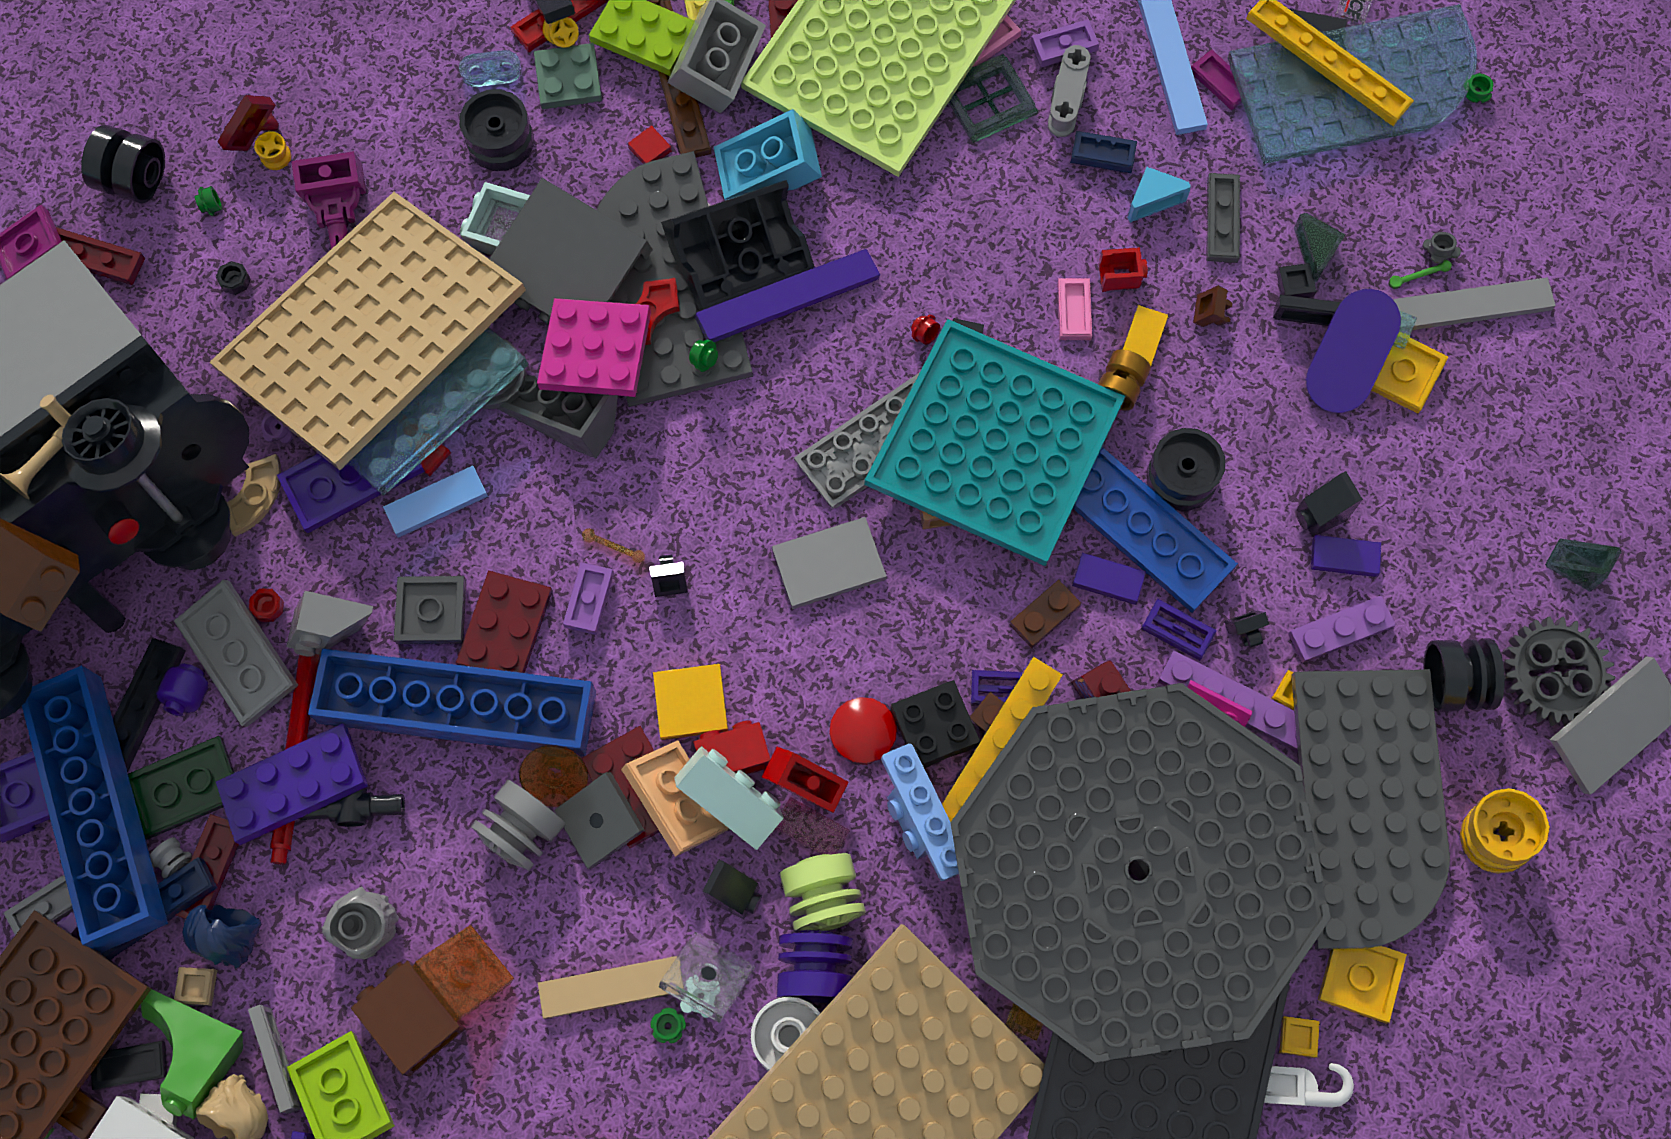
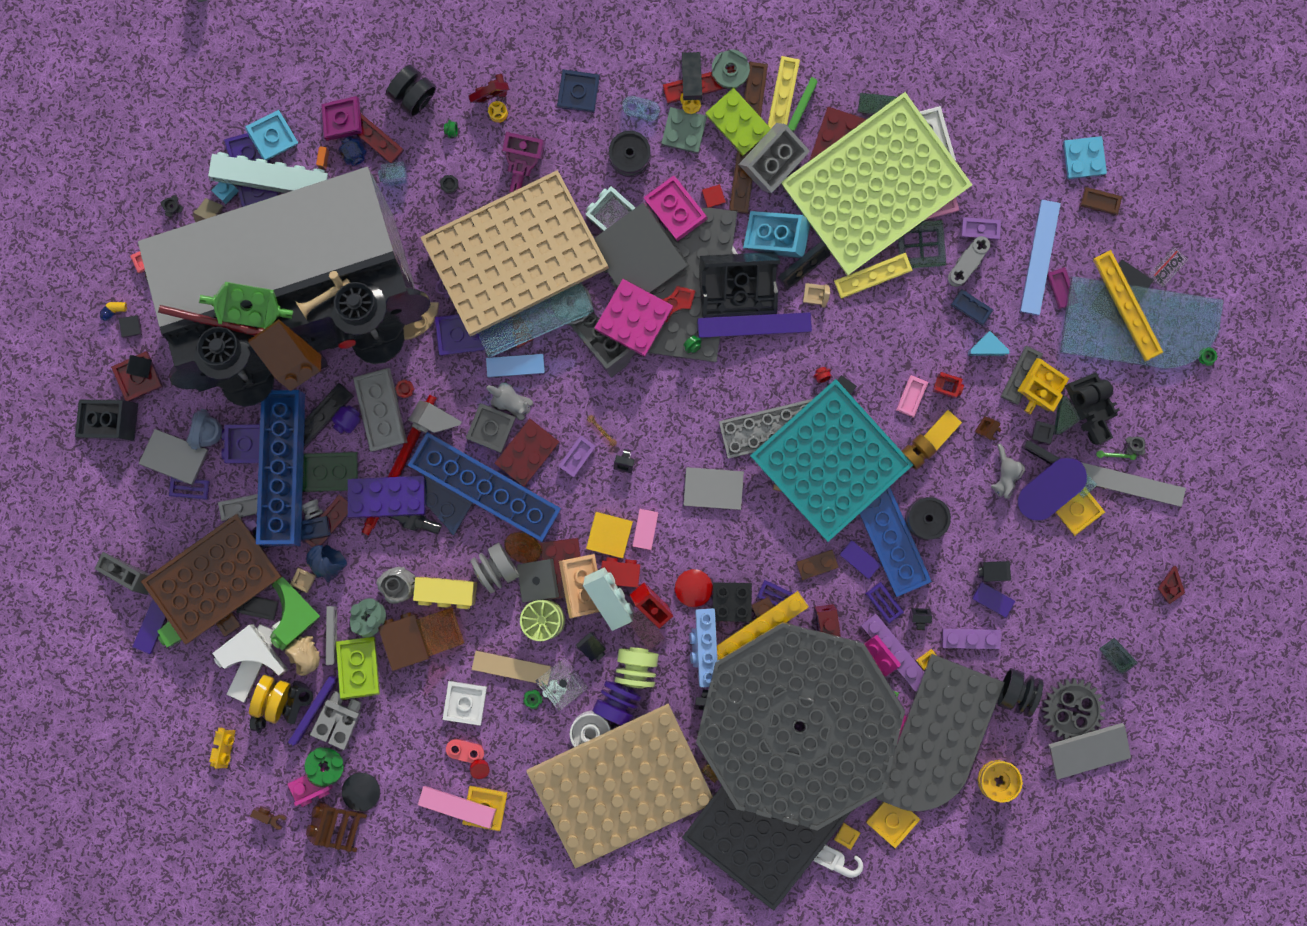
camera: 25 degrees right, 15 degrees up
(138, 293) = (393, 174): none -> clear light blue brick
(327, 1001) = (361, 611): none -> sand green plate
(386, 81) = (578, 91): none -> dark blue tile
(400, 759) = (446, 504): none -> dark blue wing
(439, 554) = (506, 399): none -> light grey animal
(446, 899) = (444, 592): none -> light yellow brick
(552, 1081) = (464, 703): none -> white plate
(600, 177) = (675, 208): none -> dark pink plate
(631, 879) = (542, 620): none -> yellowish green wheel
(745, 669) = (645, 529): none -> bright pink tile
(827, 187) = (804, 265): none -> black tile
(864, 222) = (816, 294): none -> tan tile
(937, 163) = (873, 275): none -> light yellow tile
(954, 908) = (700, 701): none -> black tile
(1263, 216) = (1043, 386): none -> yellow plate
(1277, 354) = (1010, 473): none -> light grey animal
(1349, 208) = (1093, 403): none -> black plate
(1604, 426) = (1171, 586): none -> dark red piece

